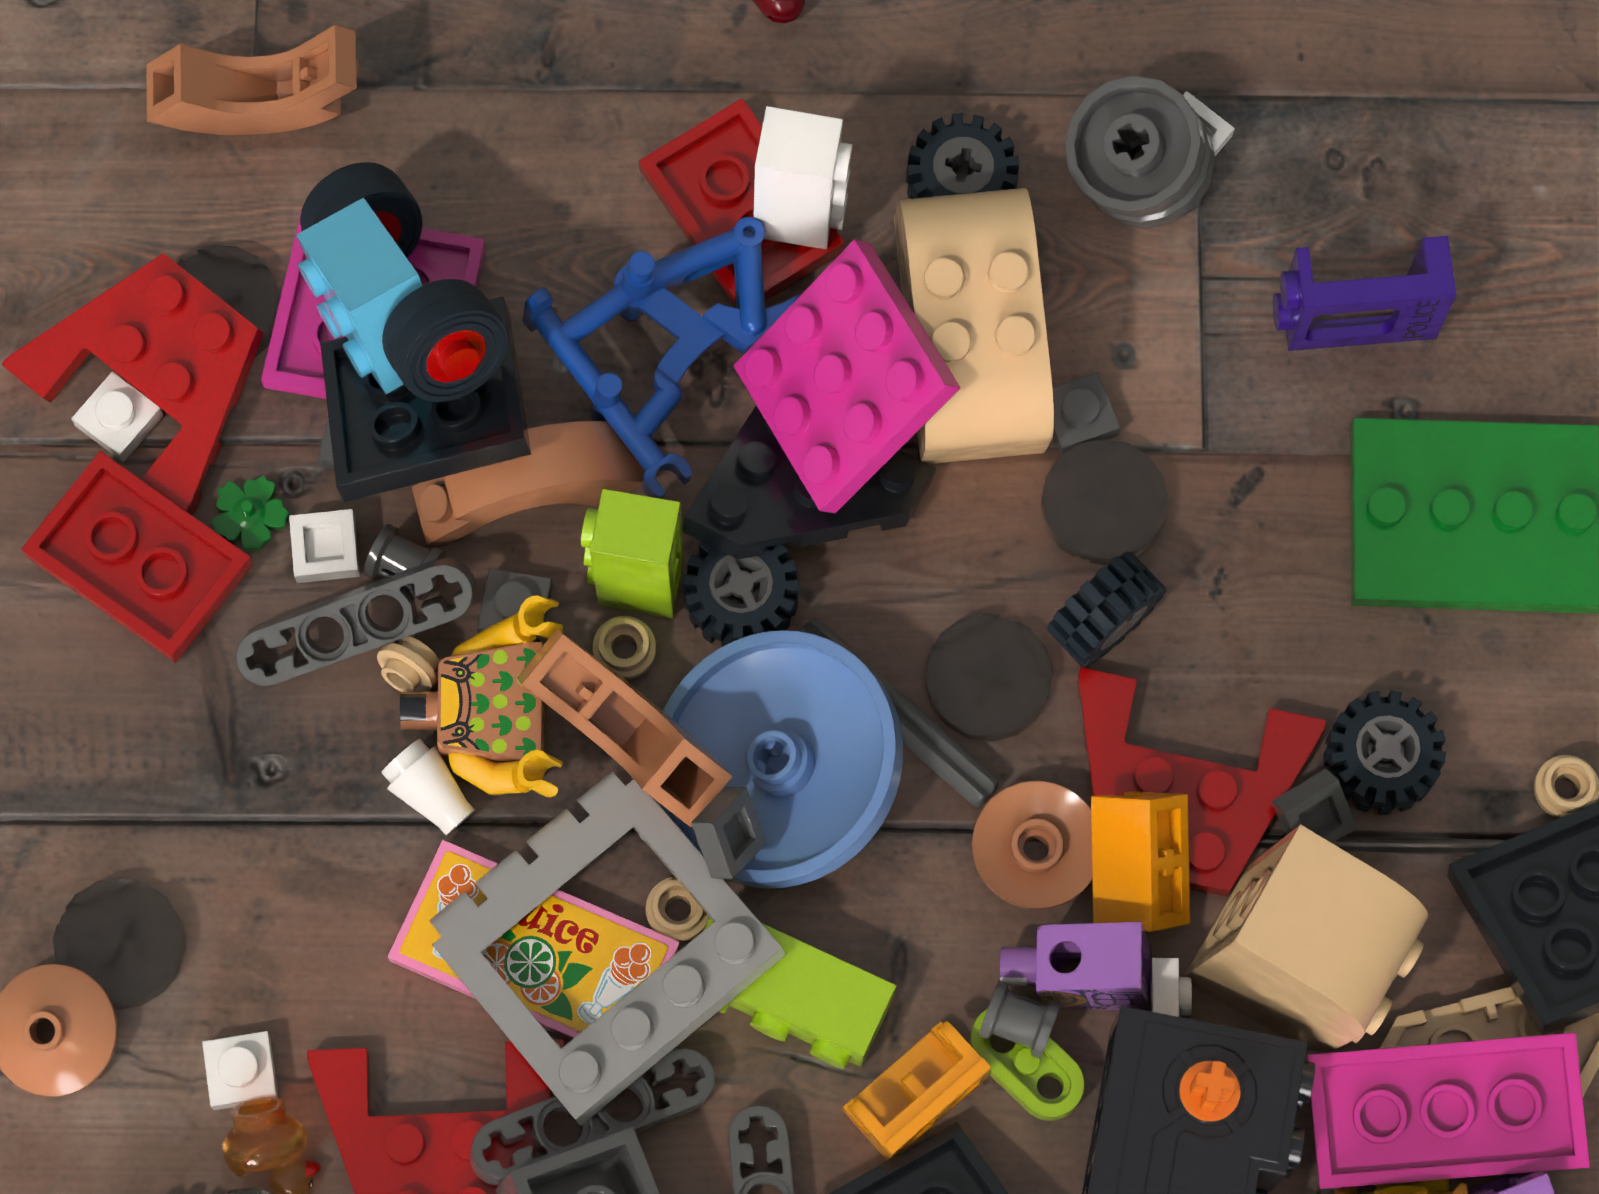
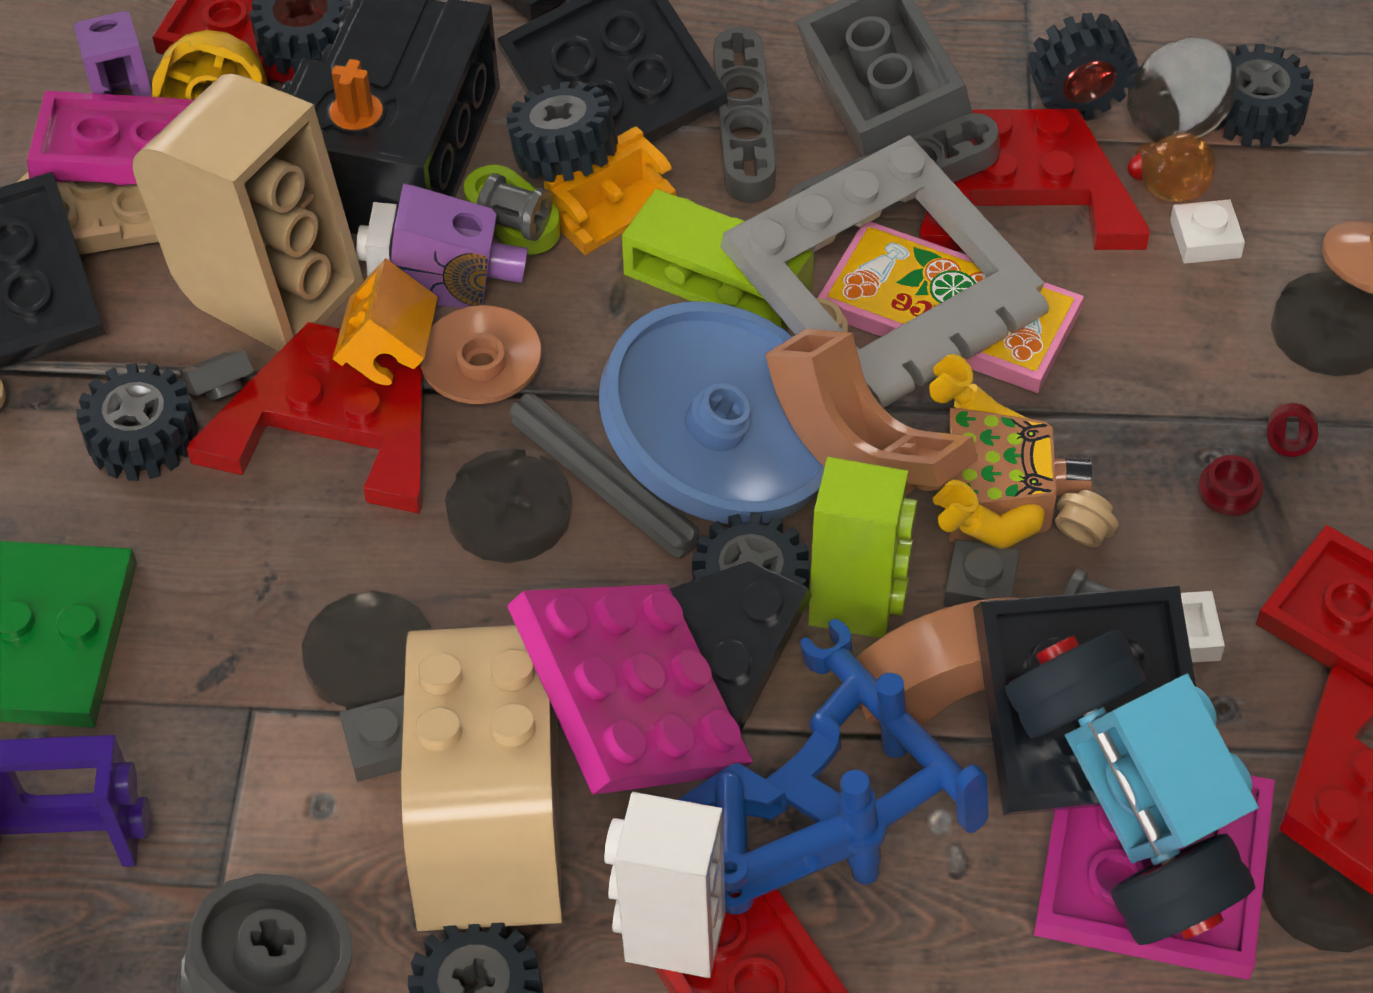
camera: 175 degrees left, 20 degrees down
(185, 788) = (1307, 430): none -> dark red hinge
(249, 513) = (1267, 676): green plant -> none
(258, 718) = (1231, 485): none -> dark red plate
(352, 614) = (1141, 542): dark grey beam -> none
(428, 786) = (1074, 423): white cone -> none
(728, 832) = (771, 316): dark grey plate -> none
(955, 1105) = (562, 131): none -> black wheel
(1106, 609) = (382, 520): black wheel -> none

